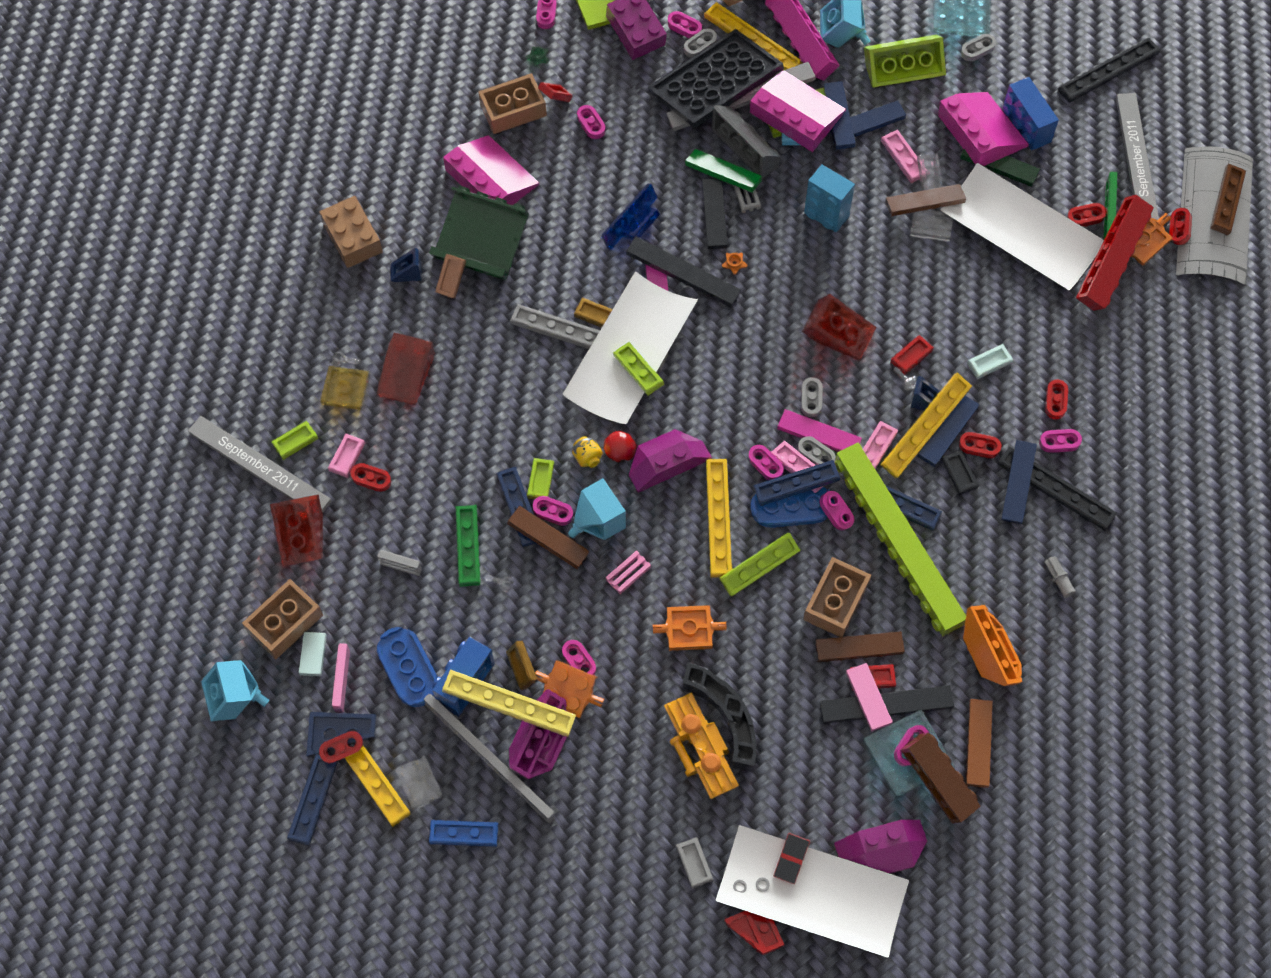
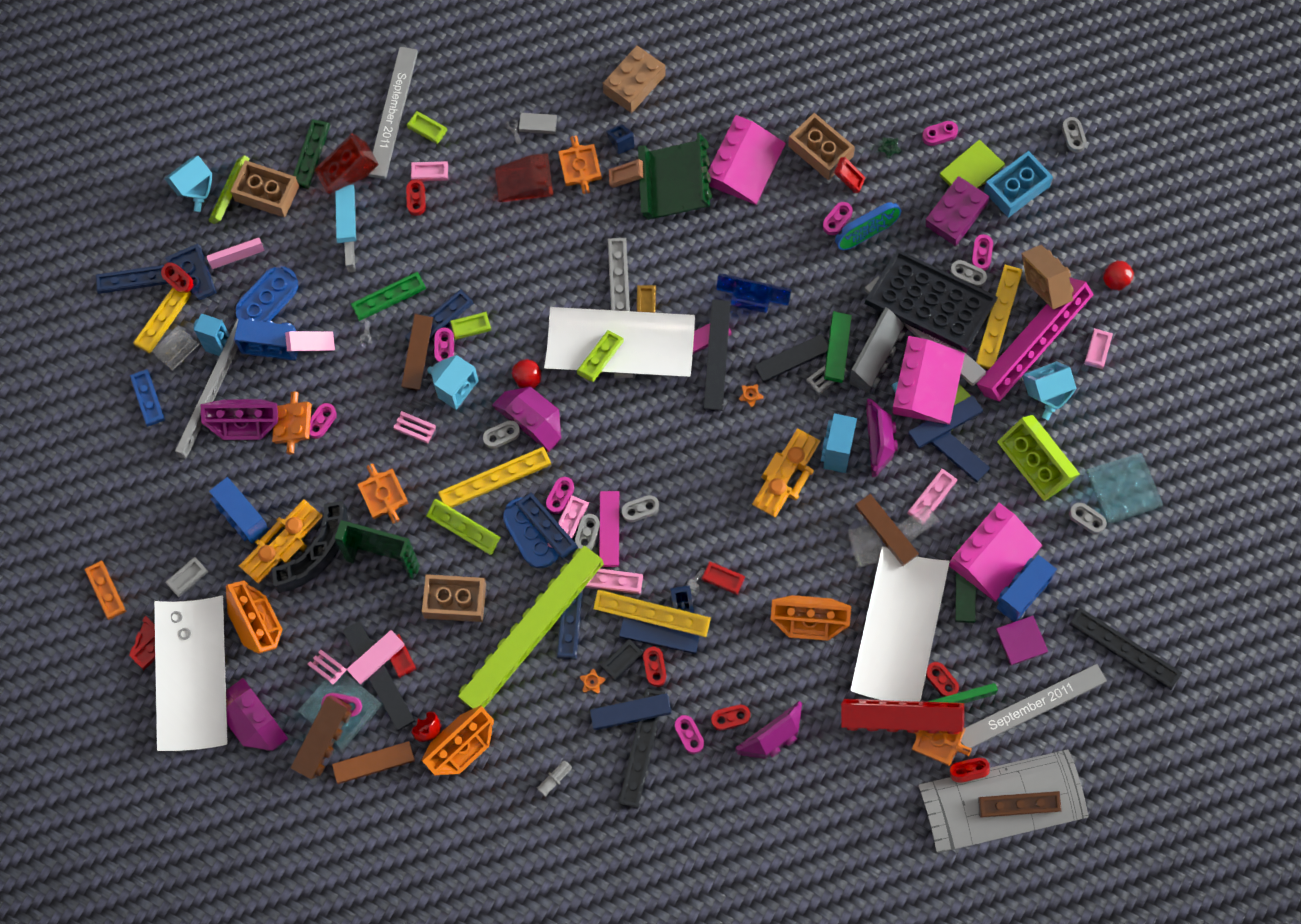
camera: 70 degrees right, 5 degrees up
(259, 561) = (311, 152): none -> dark green tile
(261, 658) = (226, 195): none -> lime tile
(312, 654) = (249, 224): light aqua tile -> none
(344, 387) = (490, 142): clear yellow tile -> none
(348, 336) = (538, 123): none -> light grey tile
(358, 548) = (345, 214): none -> medium azure tile
(417, 314) = (580, 165): none -> orange plate
(435, 727) = (211, 333): none -> dark azure brick
(490, 632) = (309, 341): none -> tile
(509, 703) = (250, 379): light yellow tile -> none
(521, 665) = (298, 379): pearl gold tile -> none
(587, 452) = (508, 350): yellow head -> none
(615, 97) = (868, 225): none -> tile
(649, 774) = (238, 511): none -> blue brick
(672, 957) = (105, 590): none -> orange tile
(676, 494) = (500, 433): none -> light grey plate
(778, 806) = (252, 617): none -> orange wedge
(780, 615) = (355, 537): none -> dark green panel
(791, 858) = (210, 645): black tile -> none
(807, 165) = (880, 436): none -> magenta wedge
(830, 264) = (780, 469): none -> light orange piece
(837, 510) = (537, 569): dark pink plate -> none
(839, 327) = (719, 506): clear red slope -> none
(845, 758) = (318, 660): none -> bright pink tile
(859, 646) = (422, 635): reddish brown tile -> none
(964, 674) = (427, 728): none -> red hair
(971, 502) = (592, 676): none -> orange plate
(986, 290) = (810, 616): none -> orange wedge
(990, 361) = (746, 647): light aqua tile -> none
(1072, 142) = (1022, 640): none -> magenta tile
(1088, 366) = (773, 736): none -> magenta wedge

